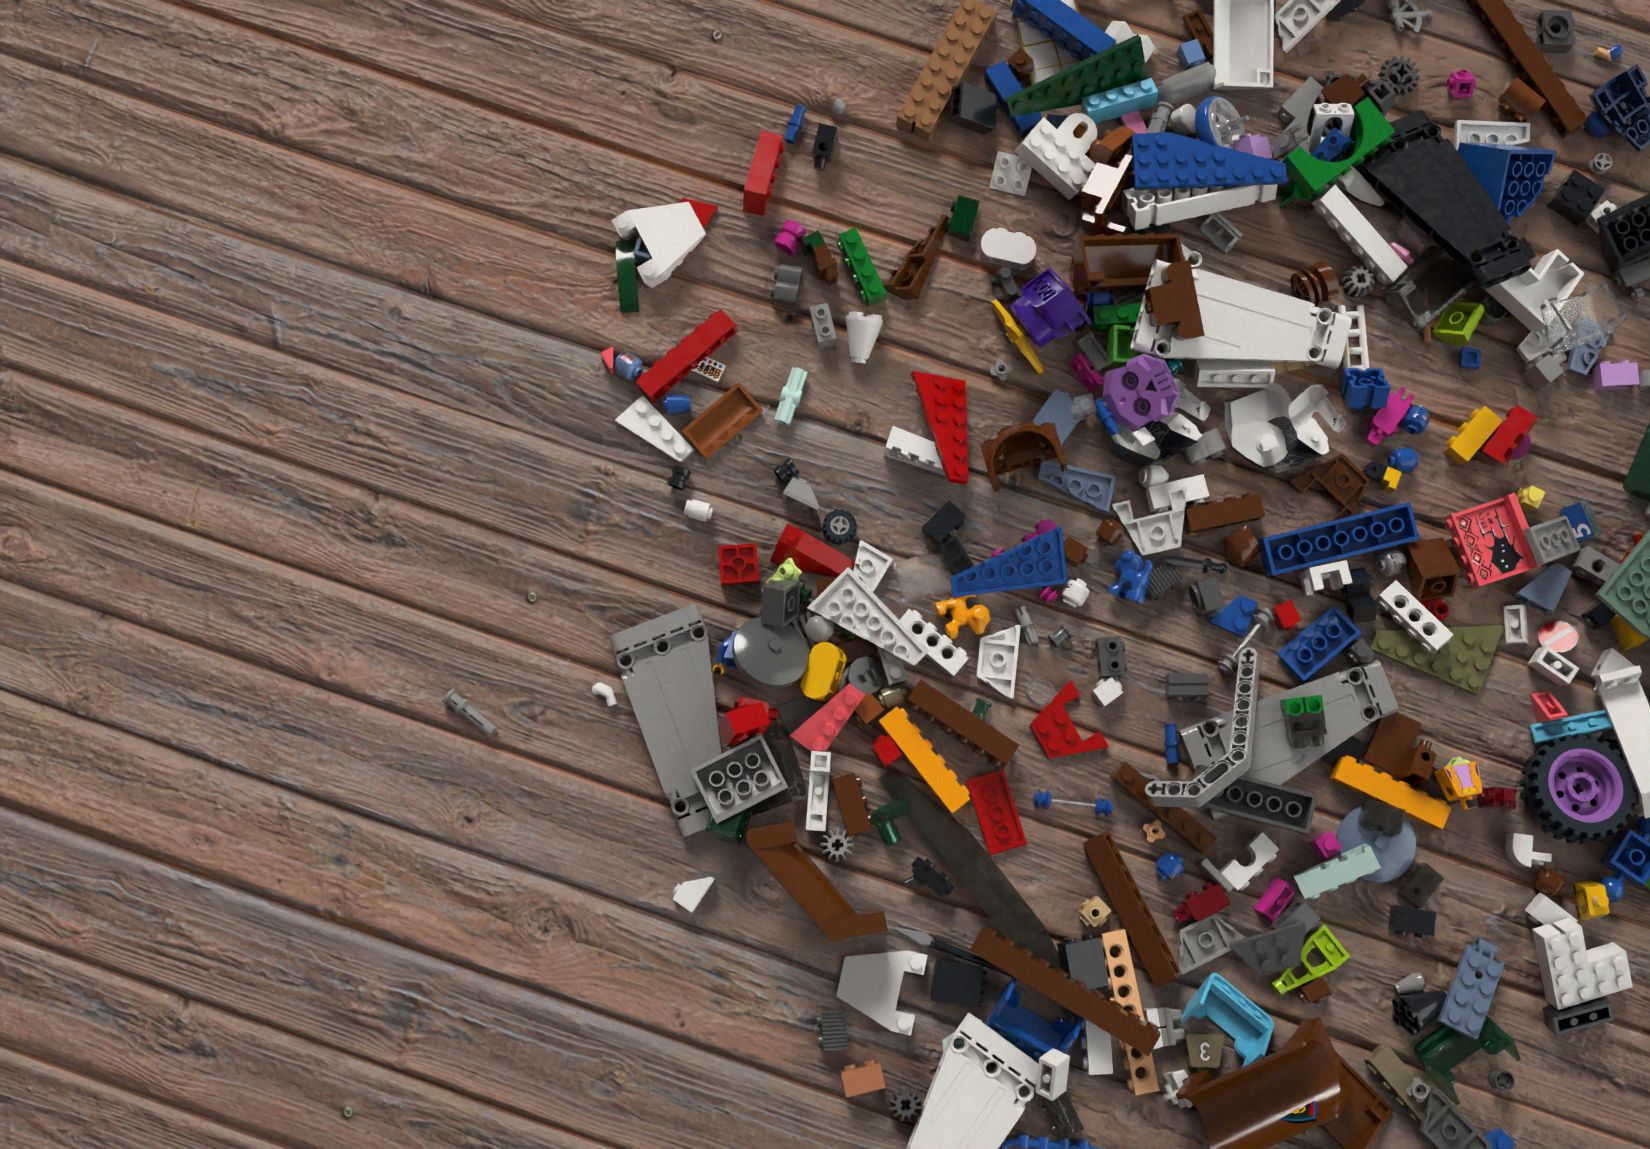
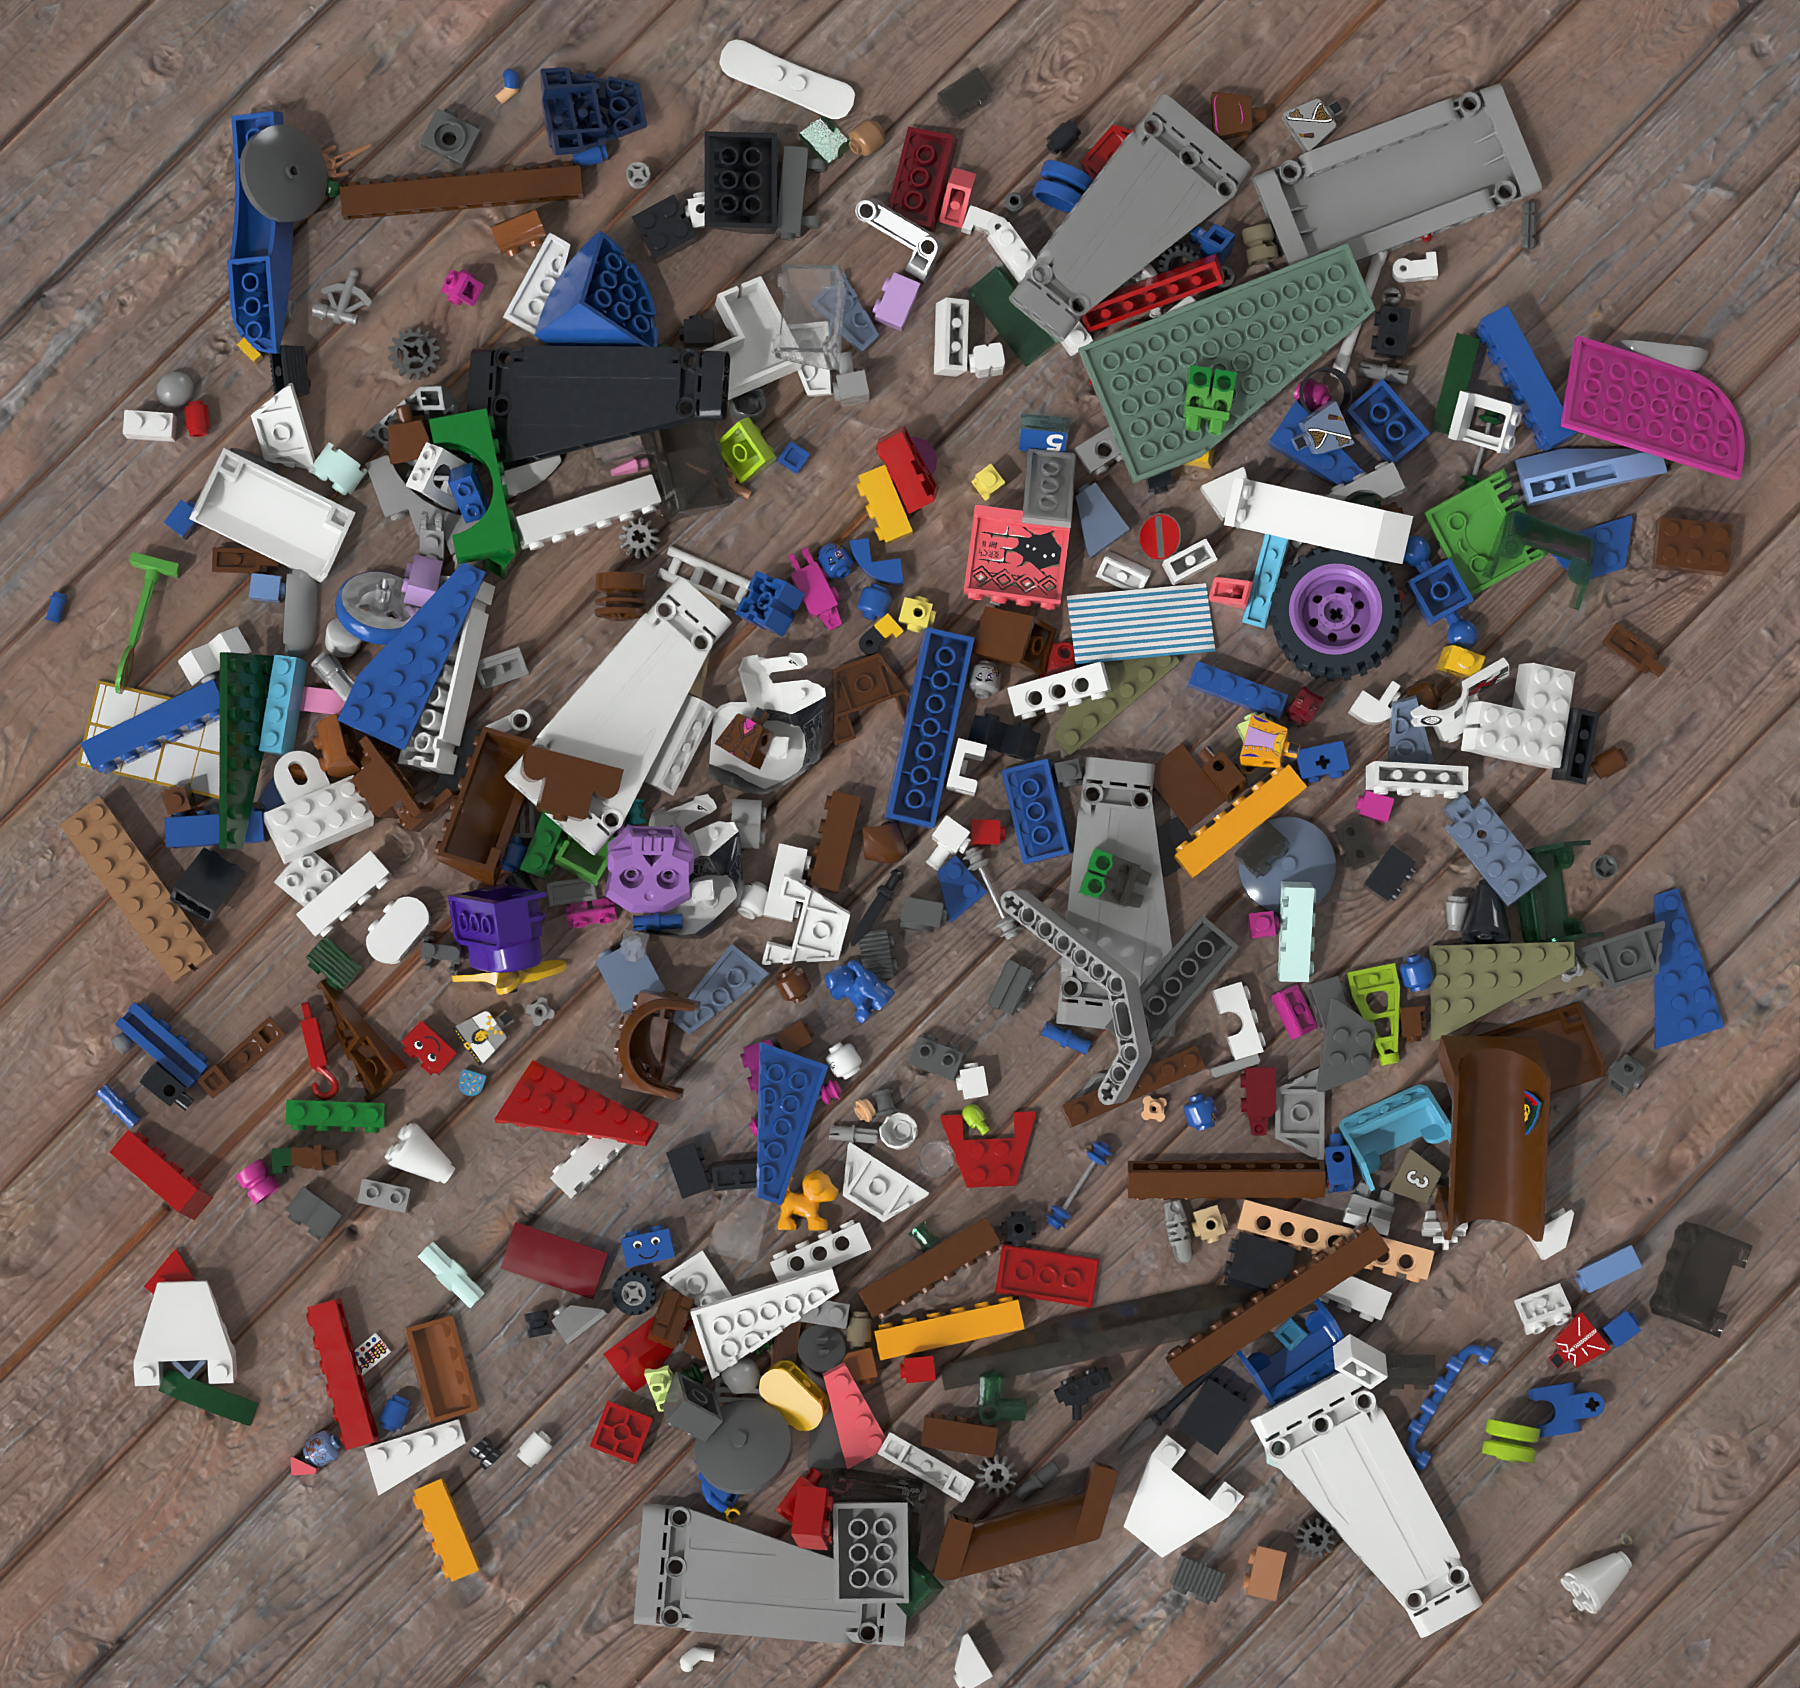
camera: 60 degrees left, 5 degrees up
(612, 477) = (447, 1530): none -> light orange brick
(834, 559) = (671, 1319): none -> reddish brown brick
(835, 461) = (554, 1260): none -> dark red slope
(847, 876) = (1037, 1481): none -> dark grey pin
(850, 133) = (163, 1045): none -> blue brick
(868, 189) = (242, 1058): none -> reddish brown slope
(876, 520) = (647, 1247): none -> blue brick
(898, 234) = (317, 1052): none -> red piece
(928, 348) = (471, 1082): none -> dark azure tile
(938, 308) = (429, 1048): none -> red brick
(966, 339) = (484, 1034): none -> torso
(1013, 201) = (344, 894): none -> white brick
(1013, 777) = (1018, 1239): none -> black brick
(1043, 1012) = (1291, 1335): none -> dark azure tile
(1045, 655) = (898, 1131): none -> white hair
(1047, 625) = (864, 1110): none -> light nougat plate
(1076, 892) = (1178, 1231): none -> light grey hinge
(1081, 706) = (975, 1118): none -> lime cylinder
(1184, 987) = (1338, 1174): none -> blue torso
(1264, 416) = (747, 738): none -> reddish brown torso
(1269, 592) = (950, 839): none -> white brick
(1297, 60) = (339, 469): none -> light aqua brick
(1351, 976) = (1416, 972): none -> blue head
(1374, 1026) = (1487, 976): none -> olive wing
(1411, 491) = (911, 606): none -> light yellow brick
(1427, 455) = (885, 571): none -> blue brick
(1454, 886) = (1374, 806): none -> dark pink brick
(1473, 835) = (1331, 752): none -> blue brick
(1481, 742) = (1237, 690): none -> blue brick
(1490, 653) = (1140, 623): none -> sticker
(1492, 906) = (1416, 778): none -> white brick
(1515, 886) = (1407, 742): none -> sand blue wing
(1578, 1045) = (1609, 762): none -> reddish brown brick
(1583, 914) = (1470, 688): none -> white piece
(1613, 455) = (987, 360): none -> white brick
(1614, 423) = (951, 337): none -> white brick

